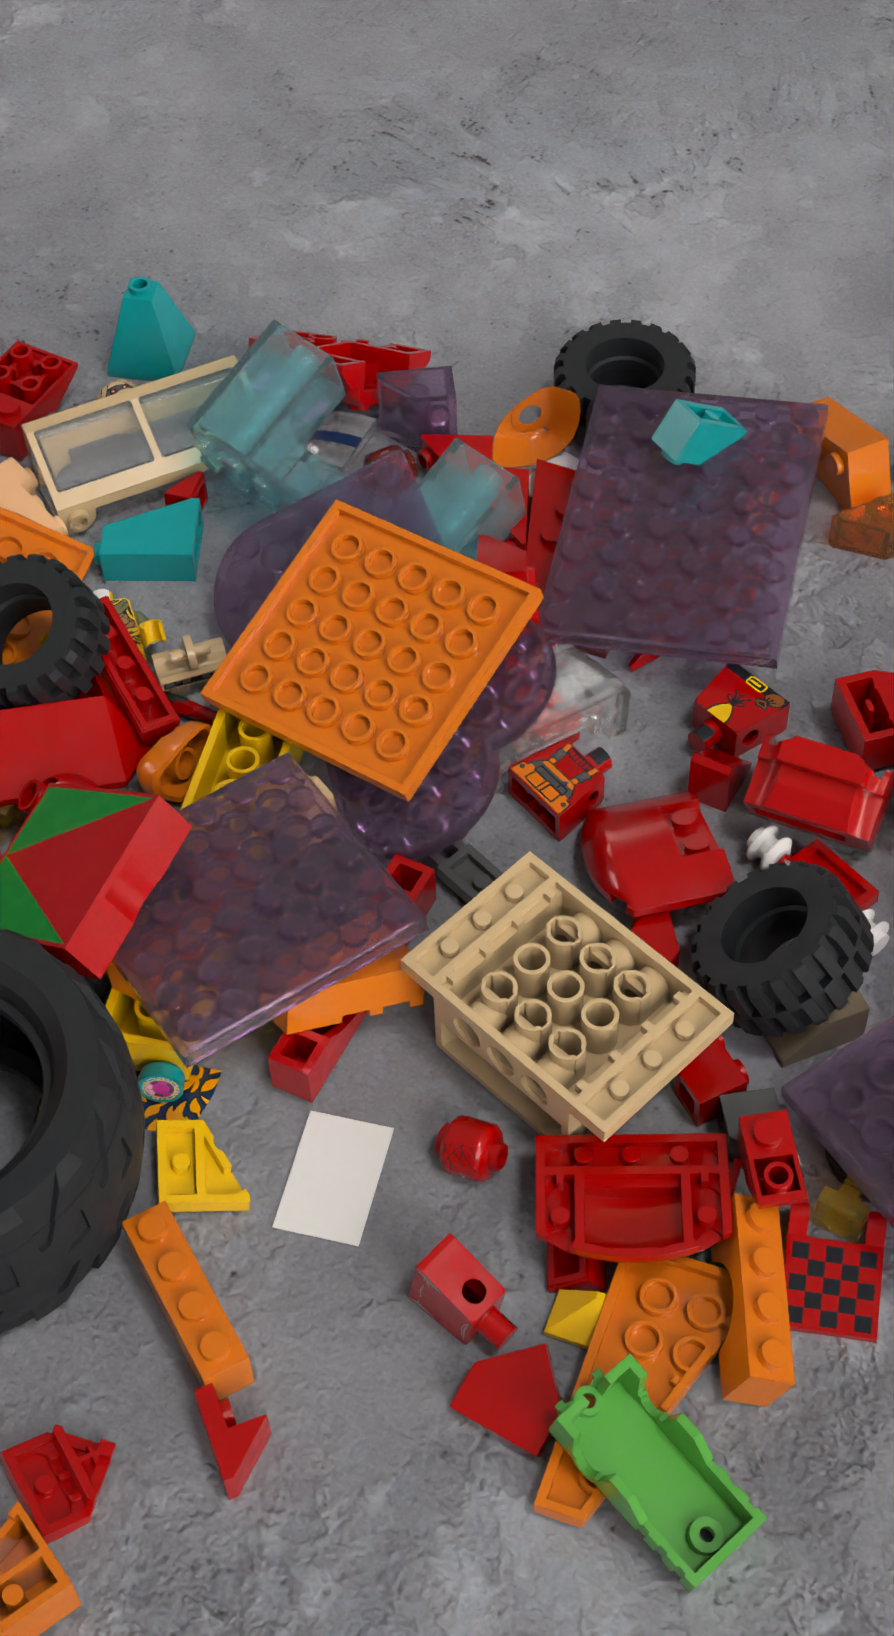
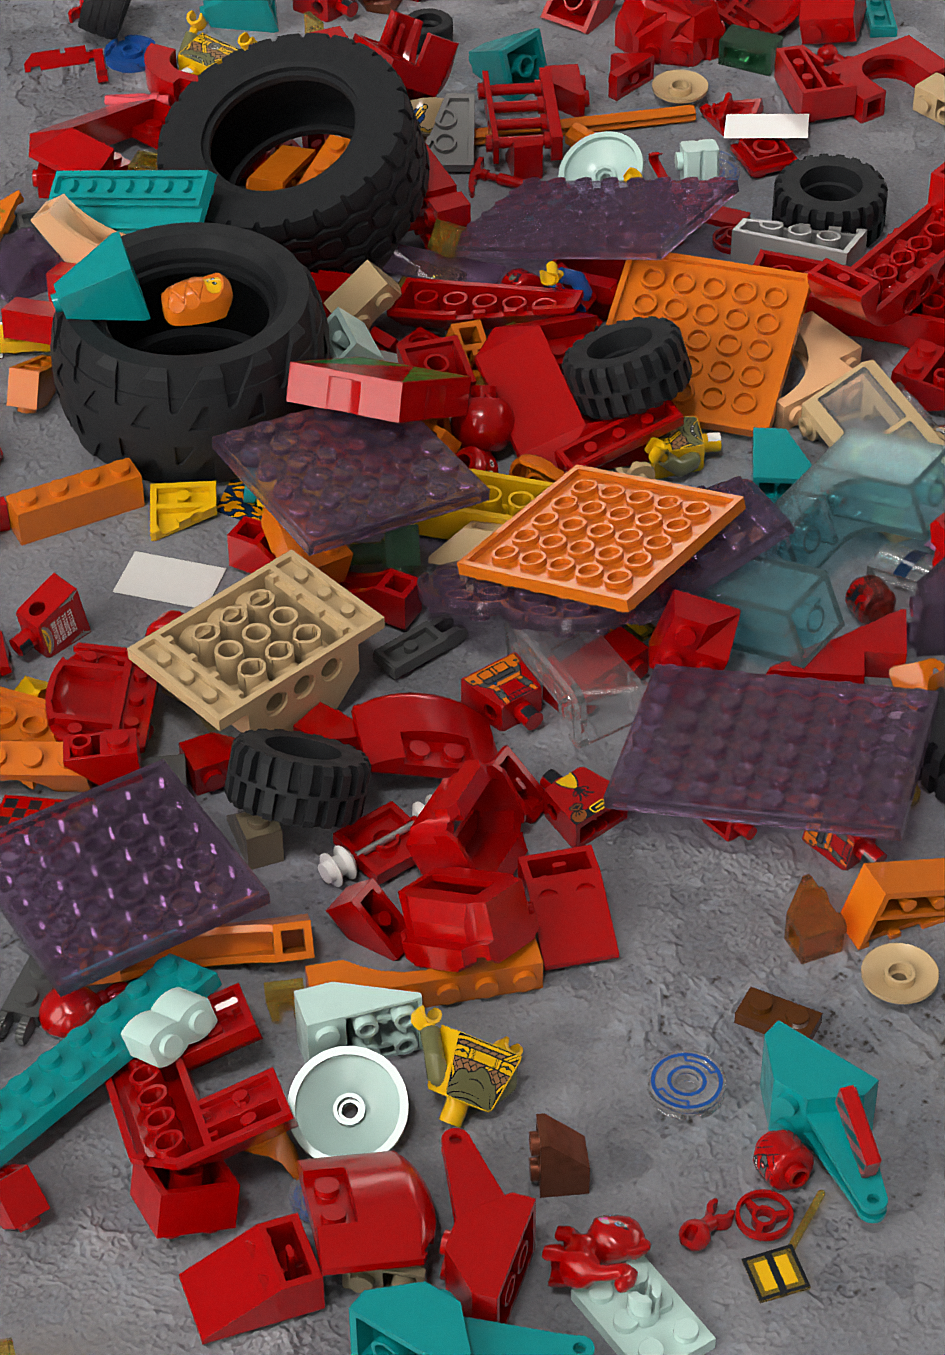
camera: 90 degrees right, 10 degrees down
(696, 432) = (851, 730): teal slope -> none

